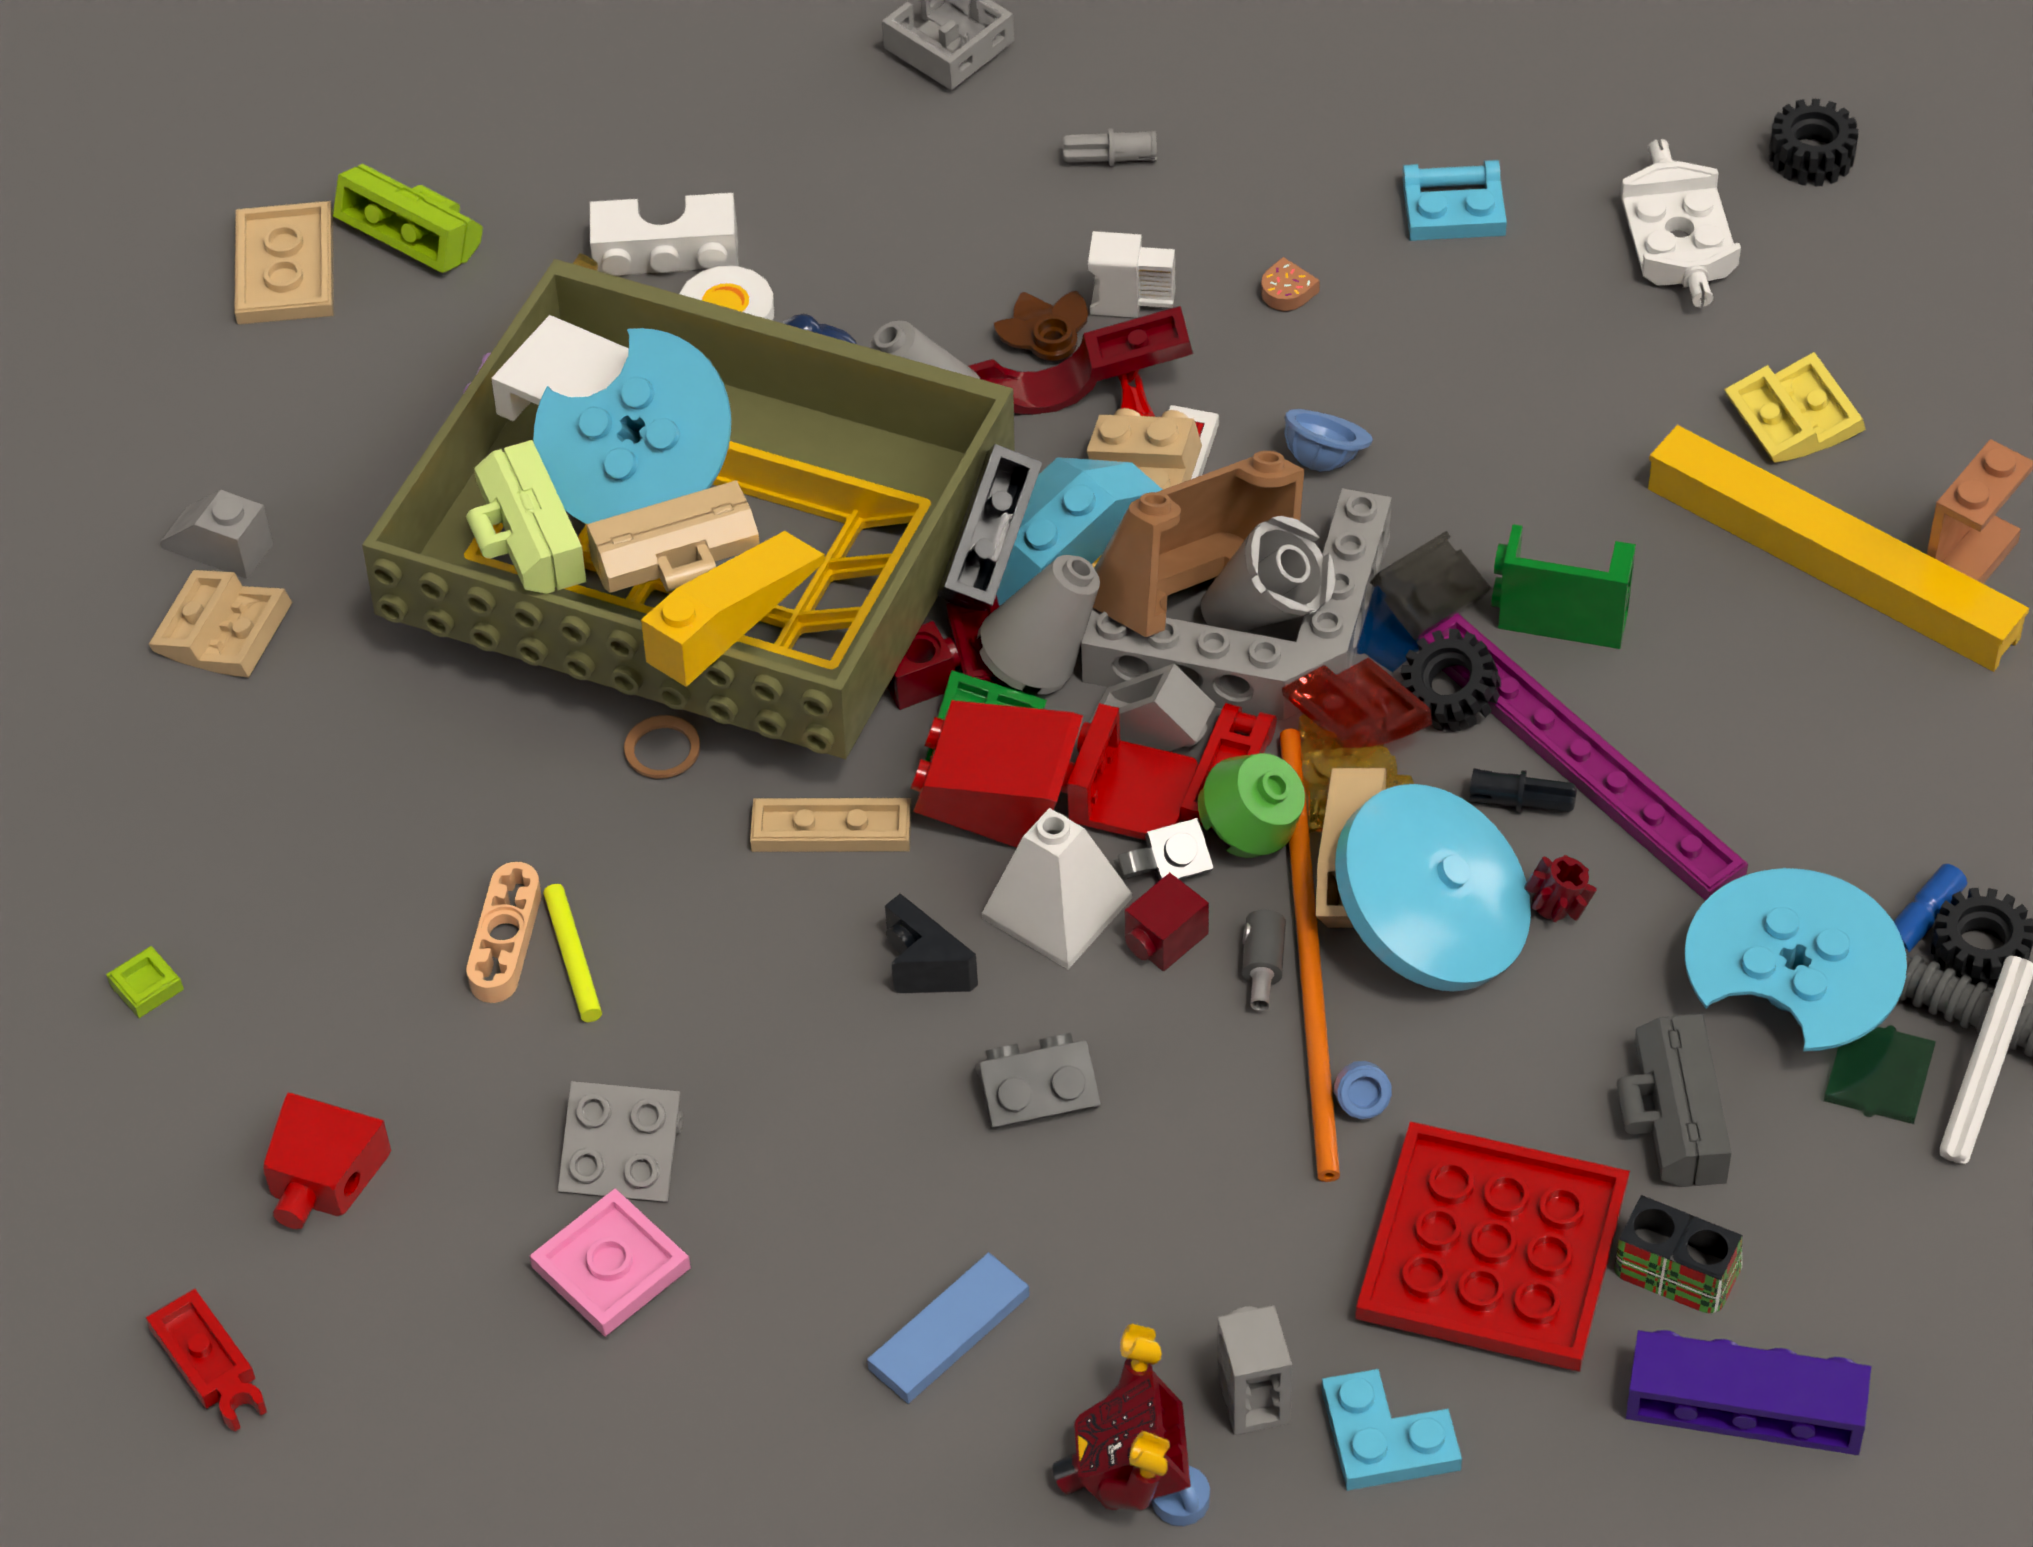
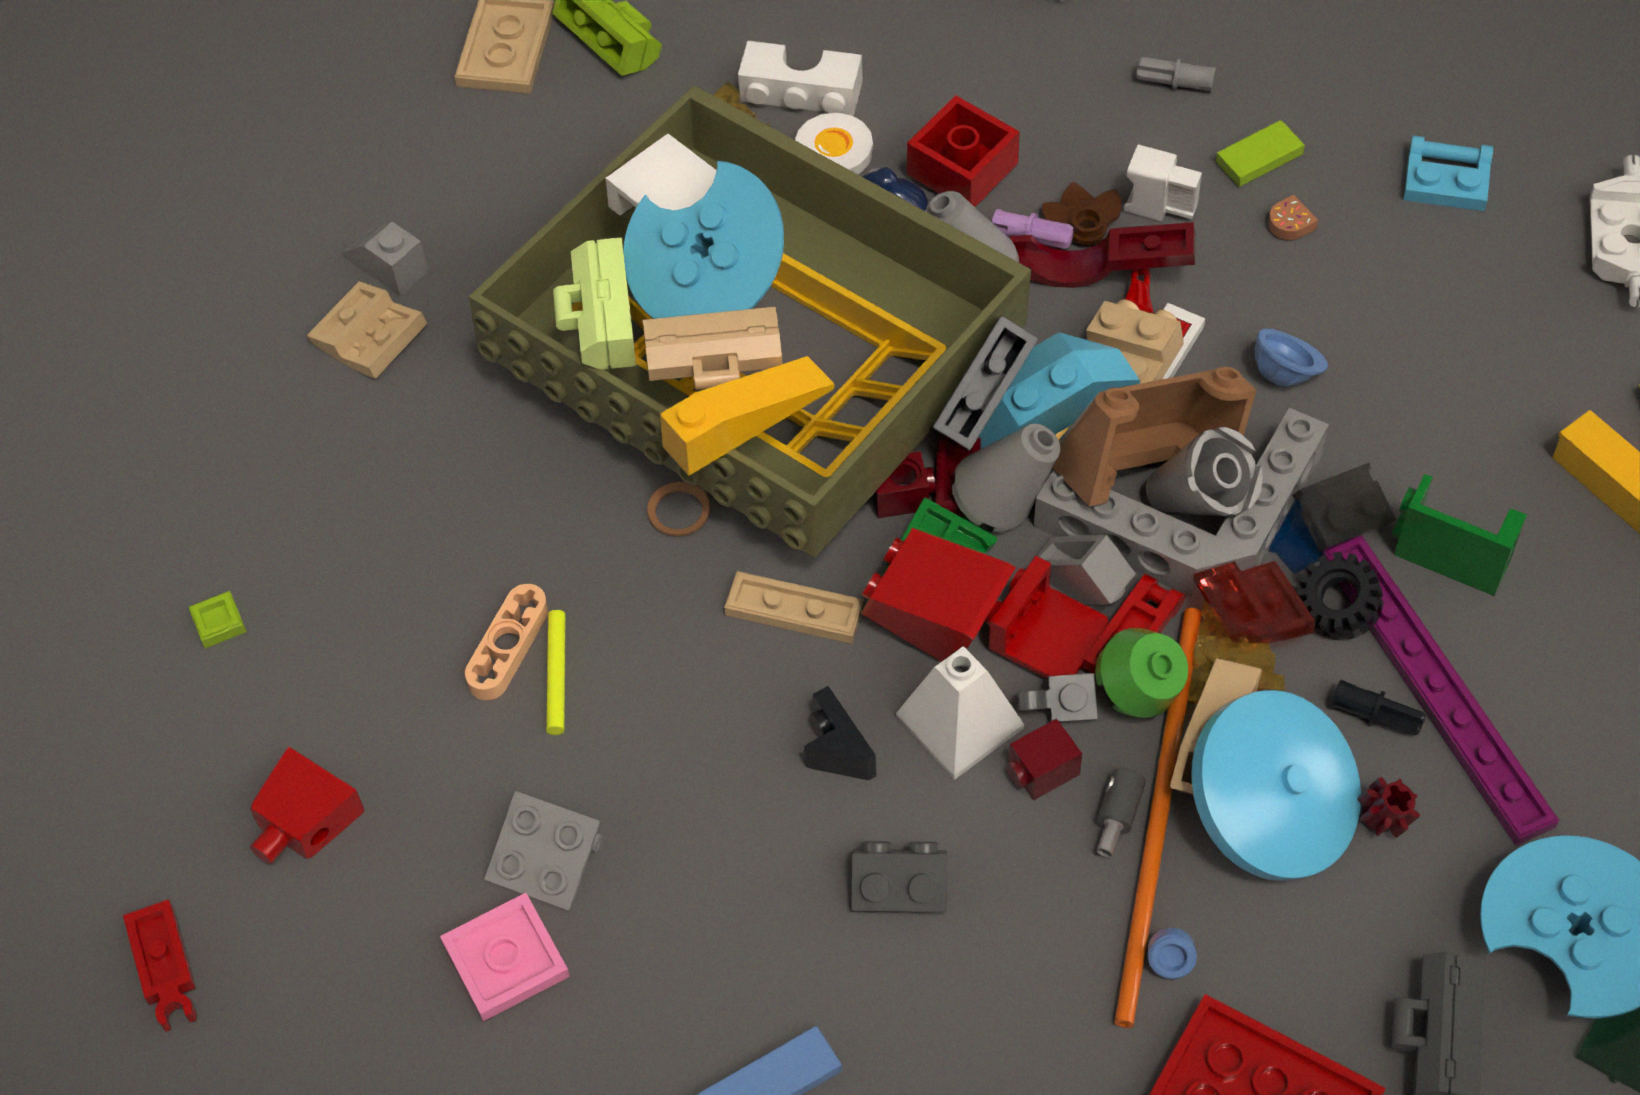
camera: 15 degrees right, 5 degrees up
(884, 278) = (963, 151): none -> red brick
(1006, 352) = (1043, 230): none -> lavender axle
(1232, 219) = (1260, 153): none -> lime tile

